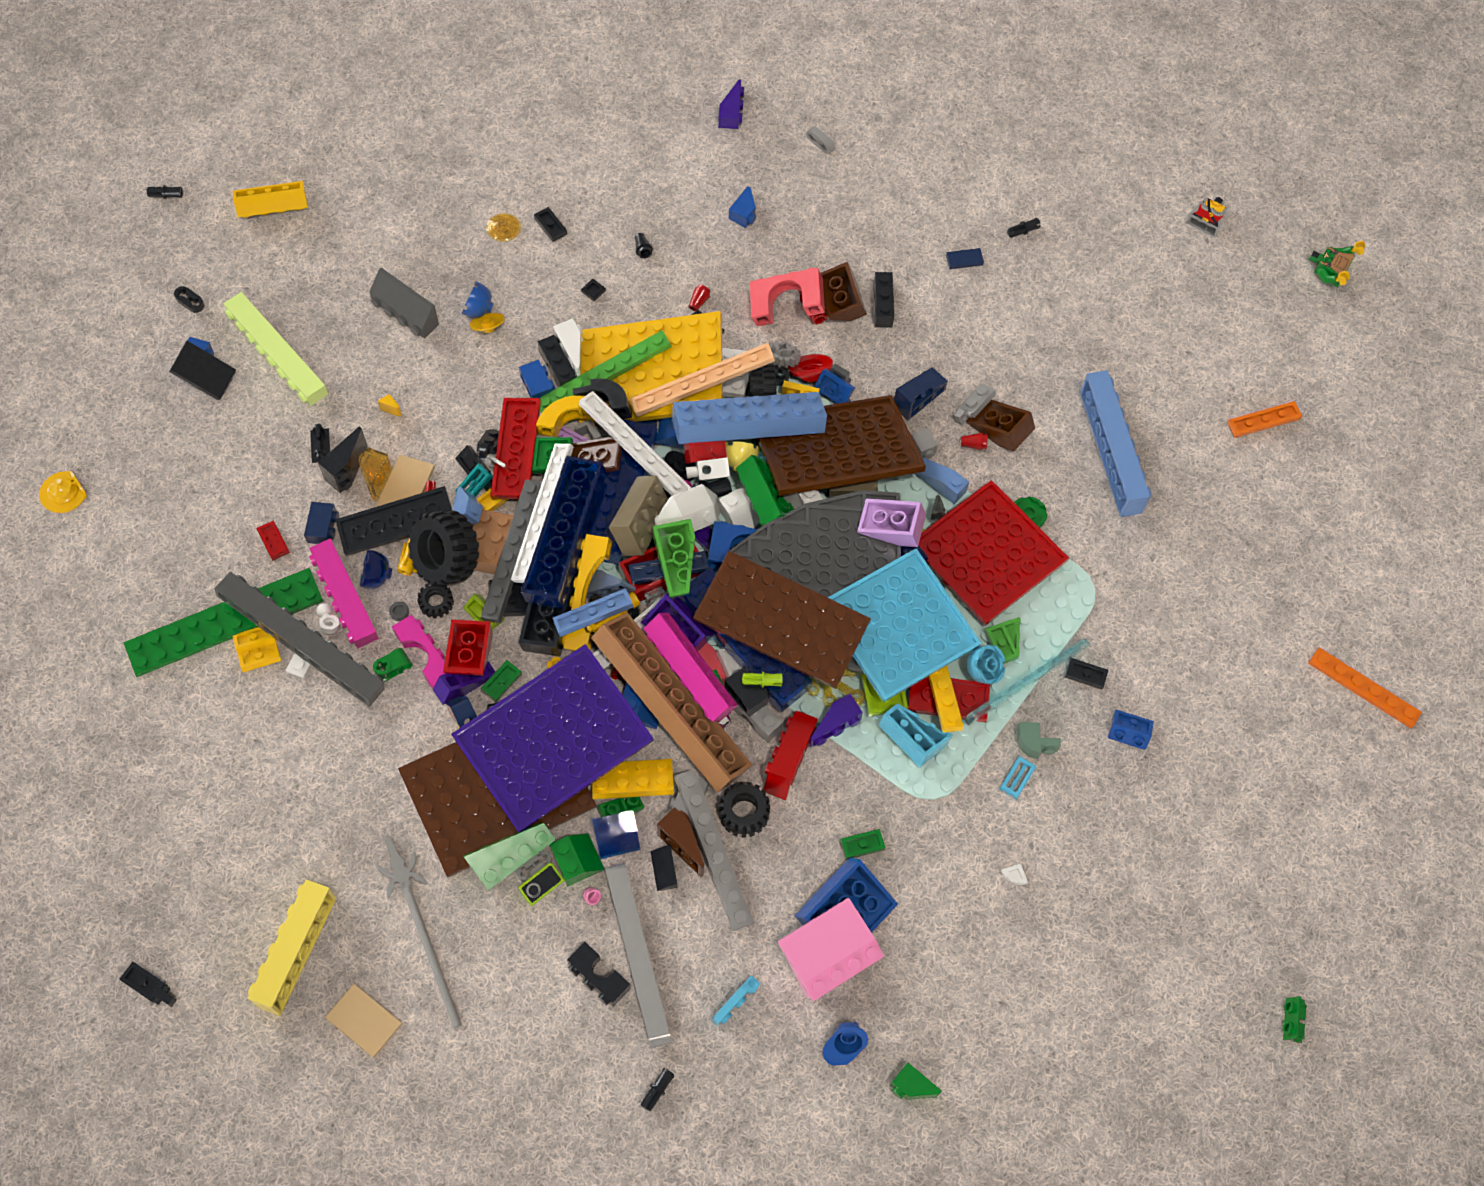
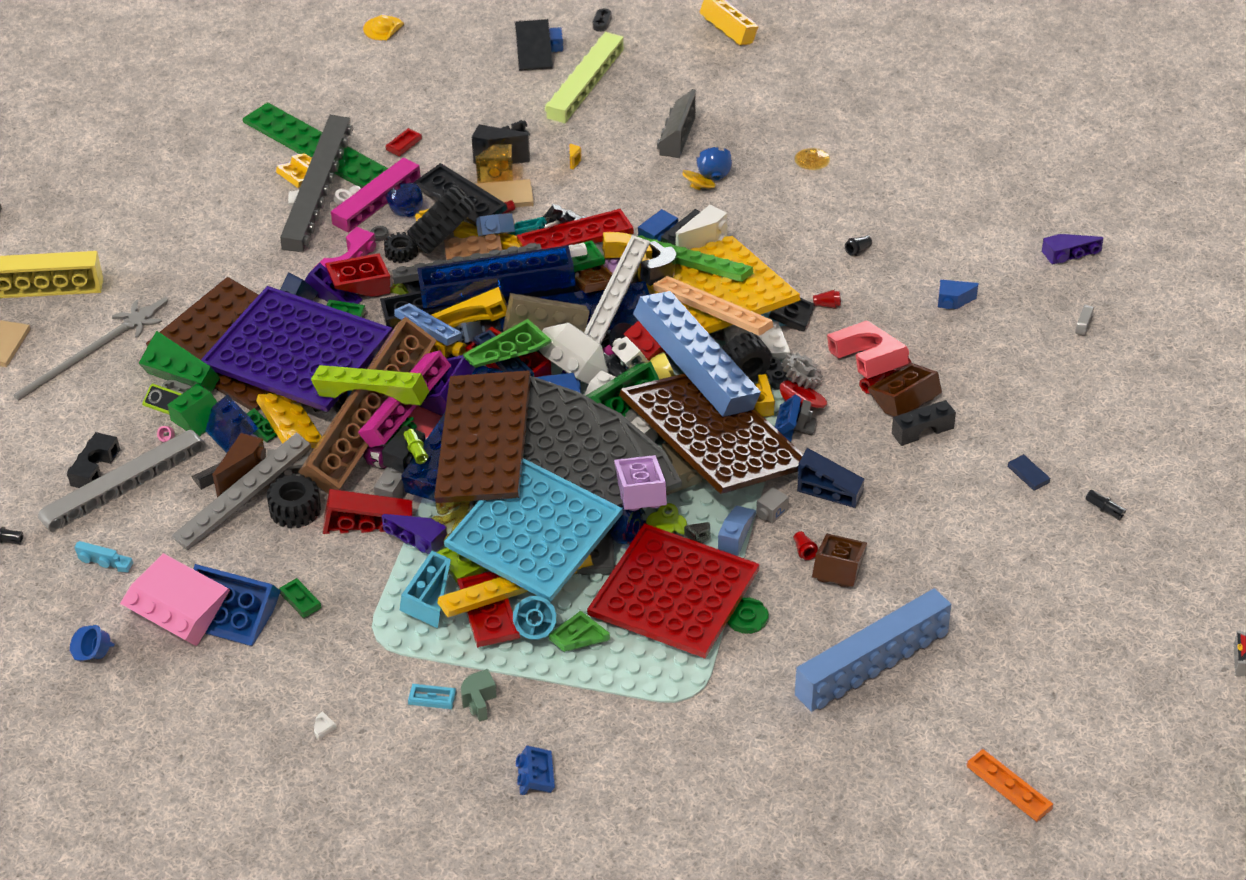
camera: 70 degrees right, 20 degrees down
(320, 522) = (432, 156): dark blue brick -> none
(392, 664) = (324, 243): green piece -> none
(550, 224) = (835, 182): black plate -> none
(593, 289) = (786, 233): black tile -> none
(652, 705) = (402, 386): none -> lime arch
(913, 1085) = (69, 706): green slope -> none
(974, 403) = (849, 531): light grey hinge -> none
(1026, 682) = (537, 659): clear light blue tile -> none
(1086, 673) = (580, 715): black plate -> none

